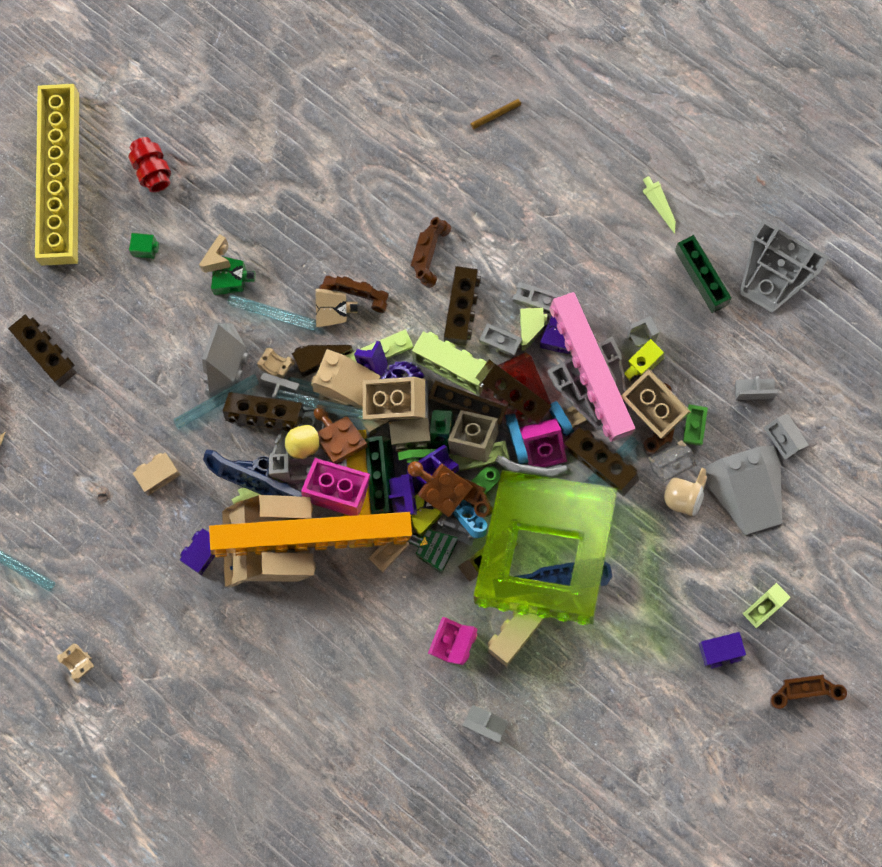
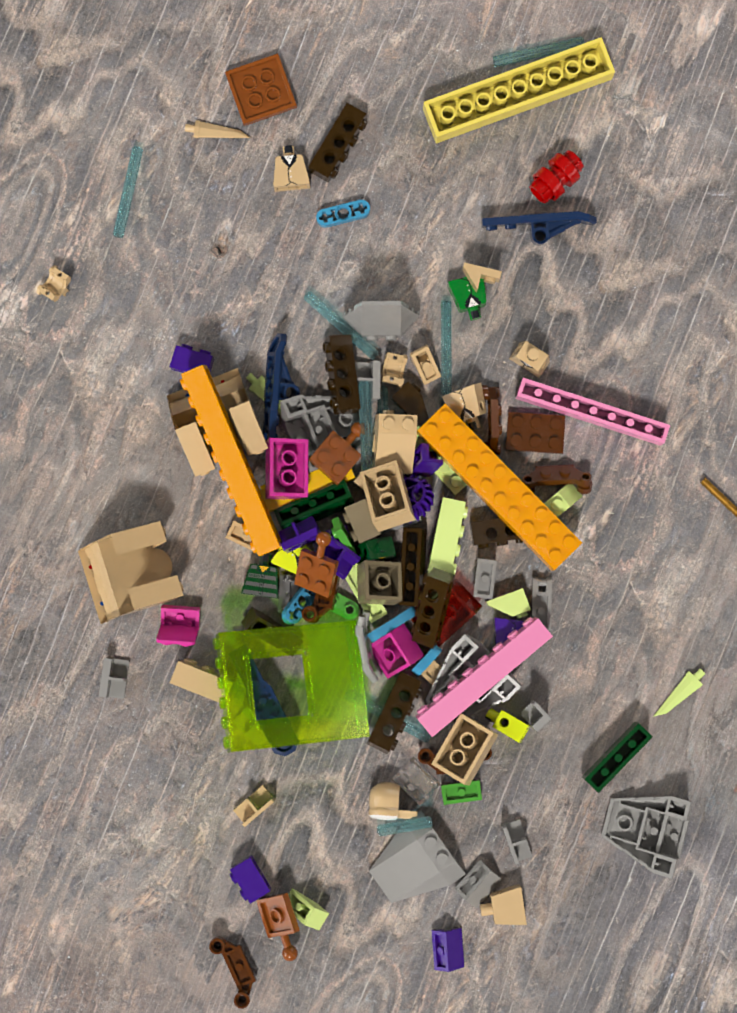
camera: 70 degrees right, 10 degrees up
(28, 149) = (536, 52): none -> clear light blue axle
(53, 402) = (290, 171): none -> tan torso
(104, 380) = (328, 211): none -> dark azure beam
(143, 245) = (472, 200): green brick -> none
(156, 473) = (252, 293): tan brick -> none
(190, 186) = (548, 223): none -> dark blue piece
(281, 334) = (425, 364): none -> tan slope
(302, 442) = (320, 421): light yellow piece -> none
(308, 239) = (530, 358): none -> tan torso
(376, 199) = (592, 411): none -> bright pink brick
(379, 257) = (535, 433): none -> reddish brown plate
(385, 677) = (128, 572): none -> tan piece
(419, 298) = (499, 487): none -> light orange brick
(450, 253) = (563, 499): none -> yellowish green slope
(651, 624) = (254, 805): none -> tan panel
(712, 485) = (404, 826): none -> clear light blue axle
(768, 632) = (279, 921): none -> dark orange plate
(814, 416) = (506, 906): none -> tan torso
(841, 483) = (447, 949): none -> dark purple panel

